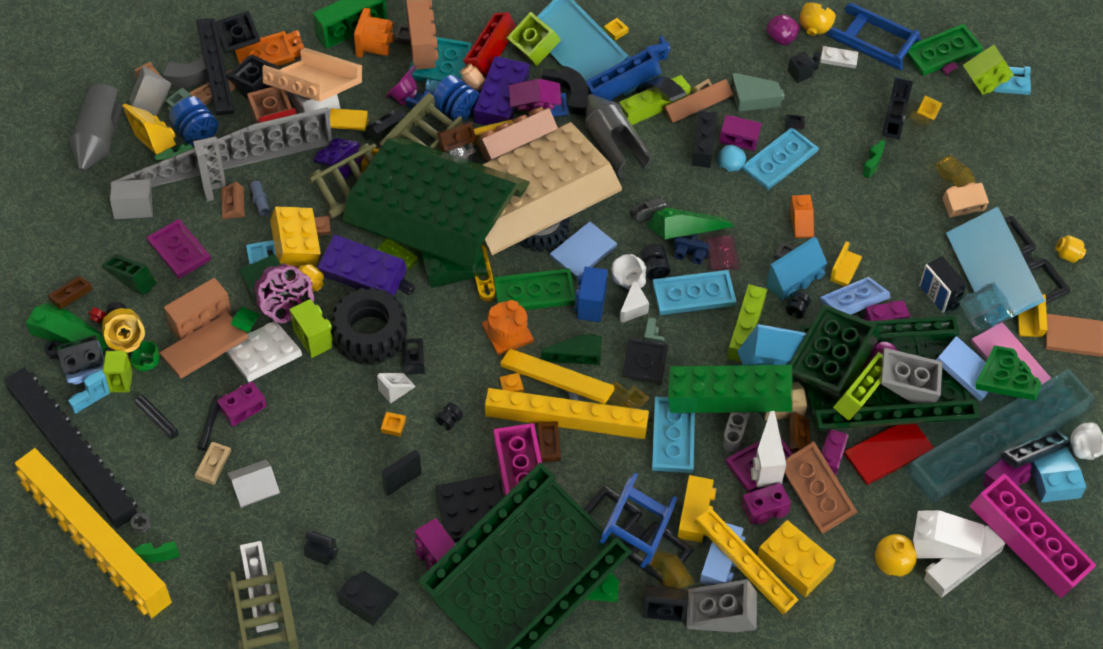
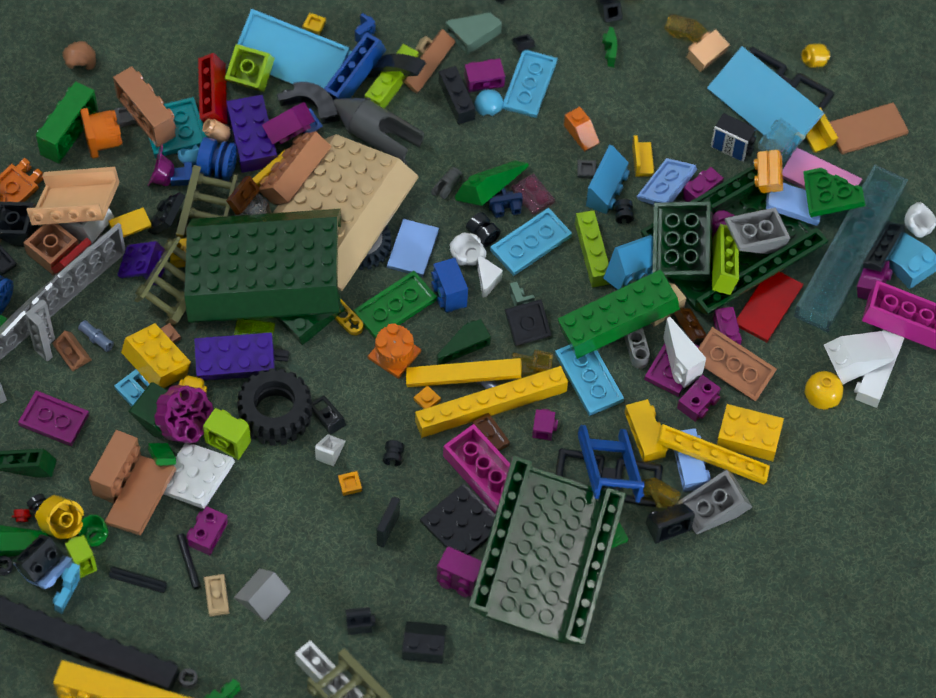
camera: 30 degrees left, 5 degrees up
(603, 457) = (544, 424): none -> magenta brick
(956, 326) = (769, 171): none -> light orange brick

